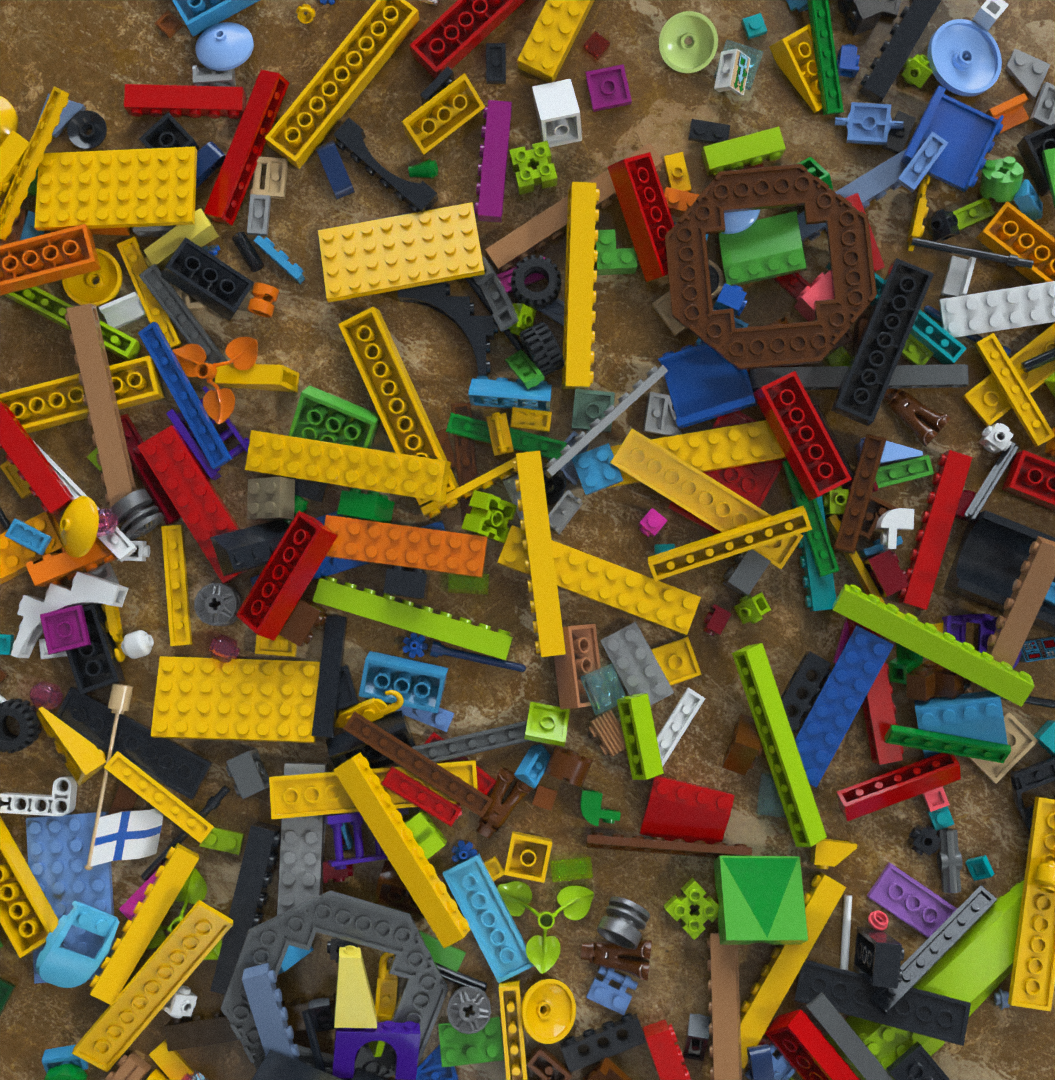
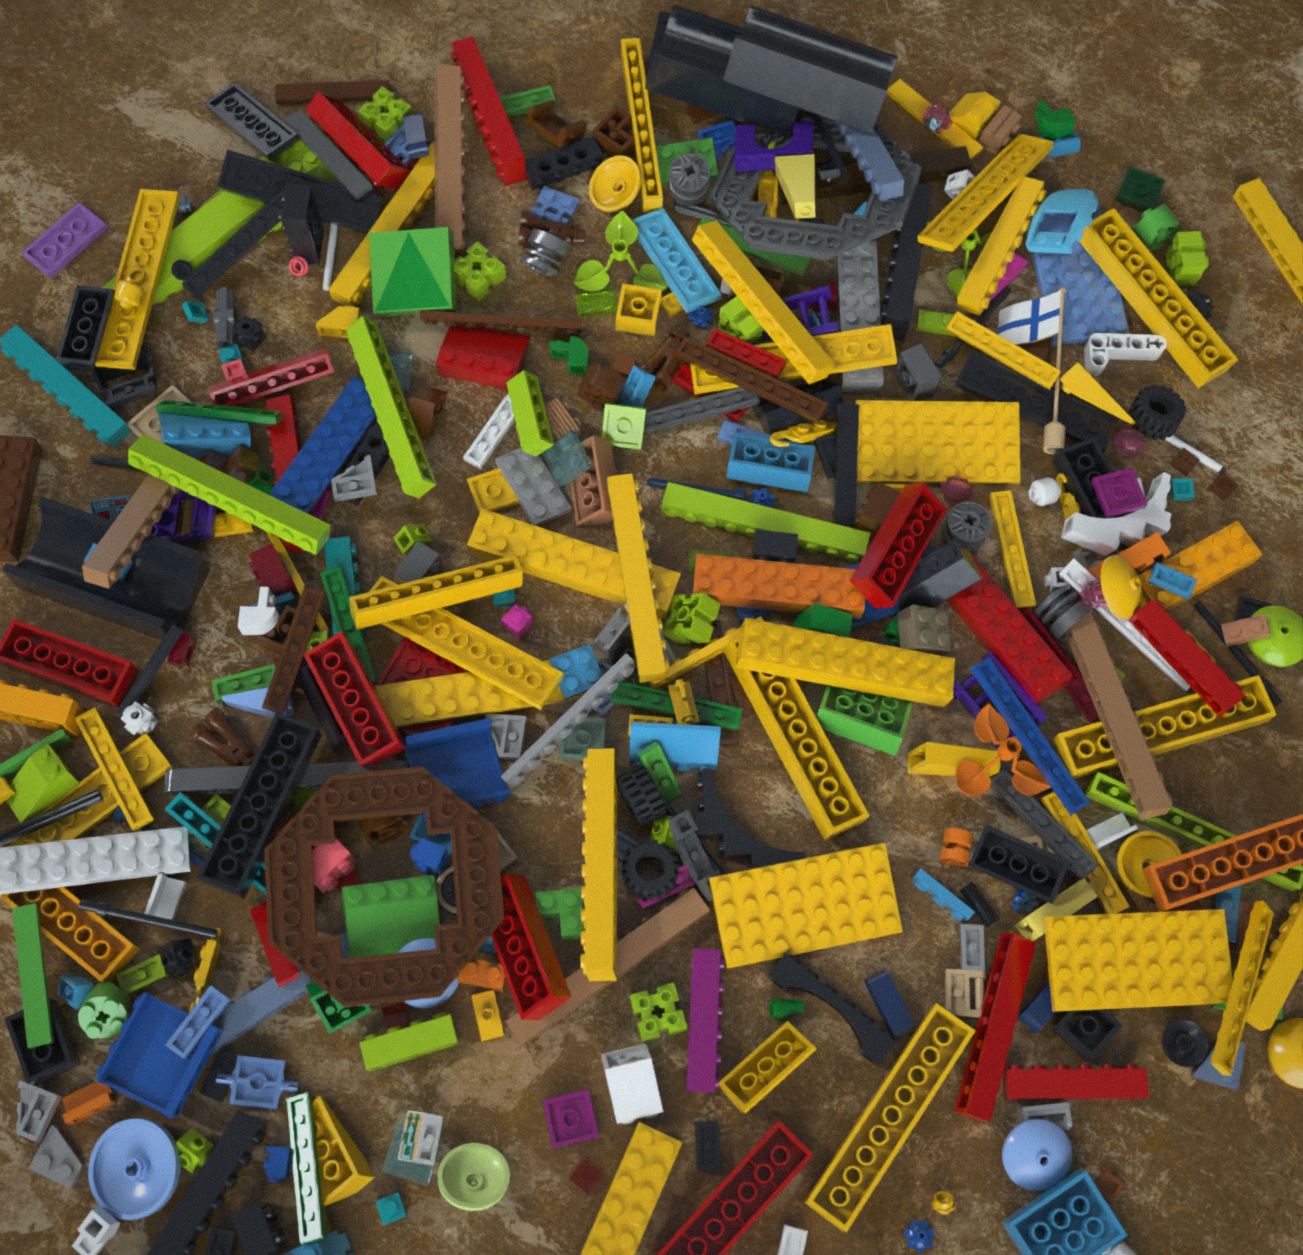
camera: 175 degrees right, 15 degrees down
(437, 85) = (779, 1093): black plate -> none
(696, 1037) = (475, 170): black slope -> none
(708, 132) = (449, 1068): black plate -> none
(716, 620) = (450, 529): dark red brick -> none
(810, 664) = (355, 482): none -> light grey wing
(910, 900) = (265, 284): medium lavender tile -> none
(935, 529) = (213, 626): red brick -> none
(998, 913) = (181, 269): none -> black plate

